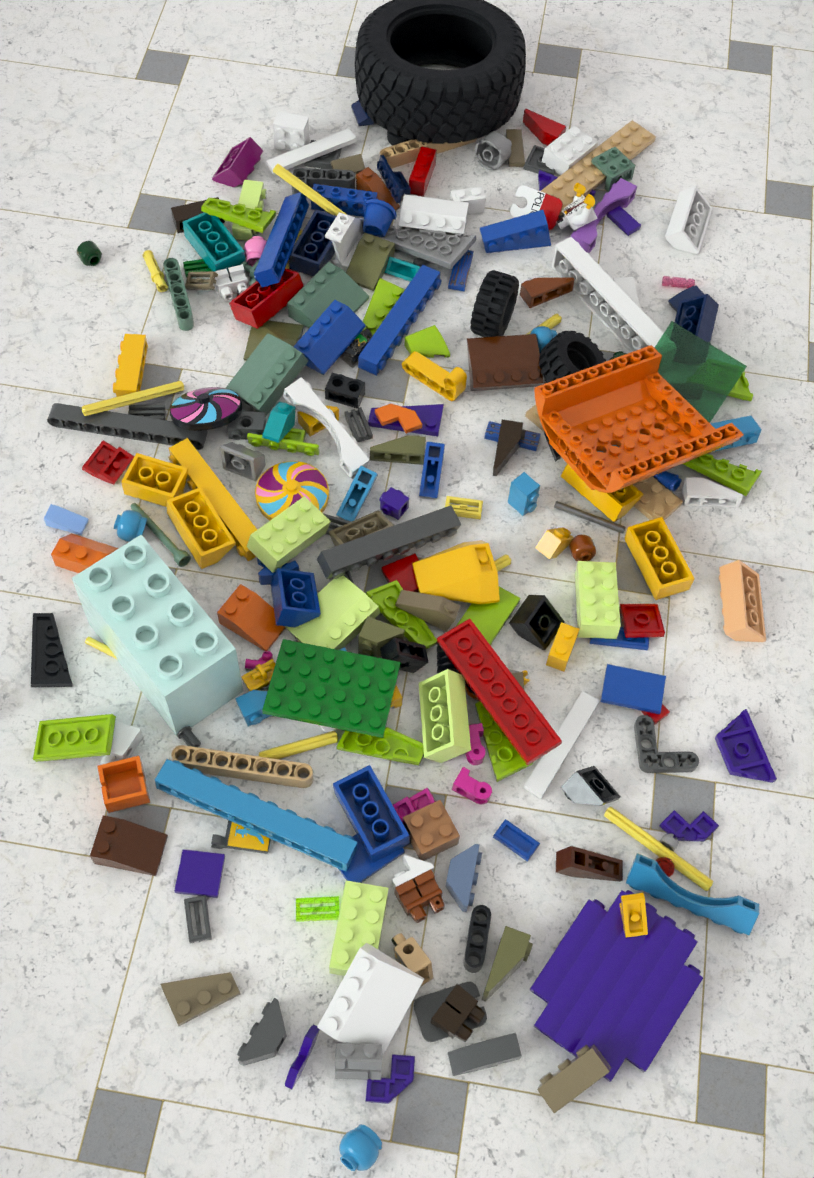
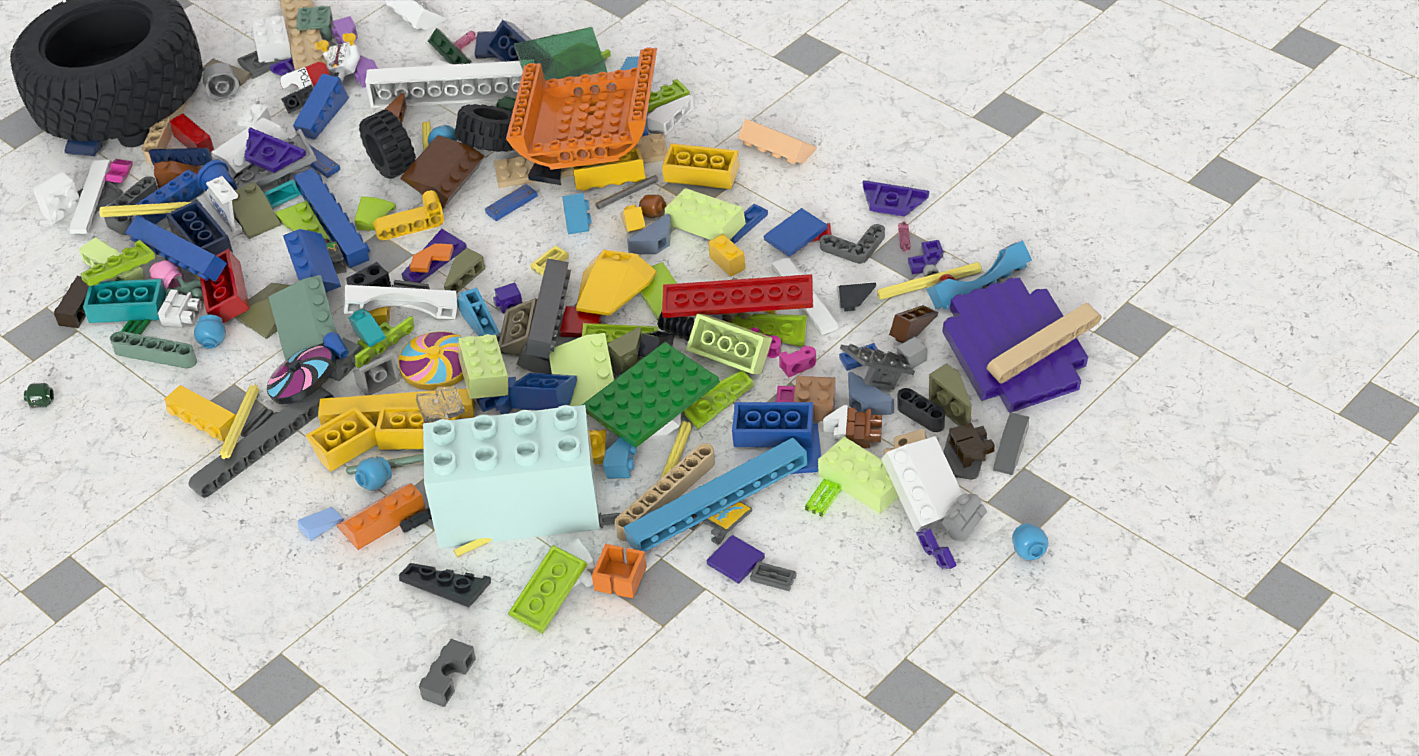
camera: 50 degrees left, 15 degrees down
(107, 462) = (287, 470): red slope -> none
(128, 846) = (673, 595): reddish brown slope -> none
(156, 275) = (115, 357): light yellow pin -> none
(199, 995) = (837, 600): dark tan wing -> none
(201, 284) = (167, 322): dark tan tile -> none
(216, 318) = (209, 331): none -> dark azure piece
(224, 528) = (440, 405): none -> clear slope
(238, 163) = (47, 251): magenta slope -> none
(246, 412) = (335, 344): none -> blue cone
(265, 1036) = (901, 565): dark grey slope -> none
(326, 286) = (262, 255): sand green slope -> none
(353, 163) = (131, 177): dark tan tile -> none
(356, 148) = (119, 171): none -> dark pink slope
(389, 1088) = (995, 515): dark purple tile -> none
(429, 231) = (270, 152): none -> dark purple wing
(430, 608) = (629, 312): dark tan slope -> none
(432, 469) = (498, 260): blue slope -> none
(500, 865) = (884, 367): none -> dark grey bracket
(508, 442) = (516, 201): dark brown slope -> none
(512, 210) = (297, 99): none -> black slope
(536, 621) = (690, 260): black slope -> none
(543, 127) = (227, 44): red slope -> none
(544, 572) = (652, 238): none -> sand blue slope
(546, 887) = (912, 352): none -> light grey brick
(573, 1077) = (1065, 396): dark tan brick -> none
(623, 220) = (373, 43): dark purple tile -> none
(625, 1018) = (1044, 343): none -> tan beam
(634, 915) = (976, 295): yellow slope -> none
(641, 620) = (748, 199): red tile -> none
(656, 280) = (447, 48): none -> dark green tile
(701, 790) = (904, 237): none -> clear pink axle

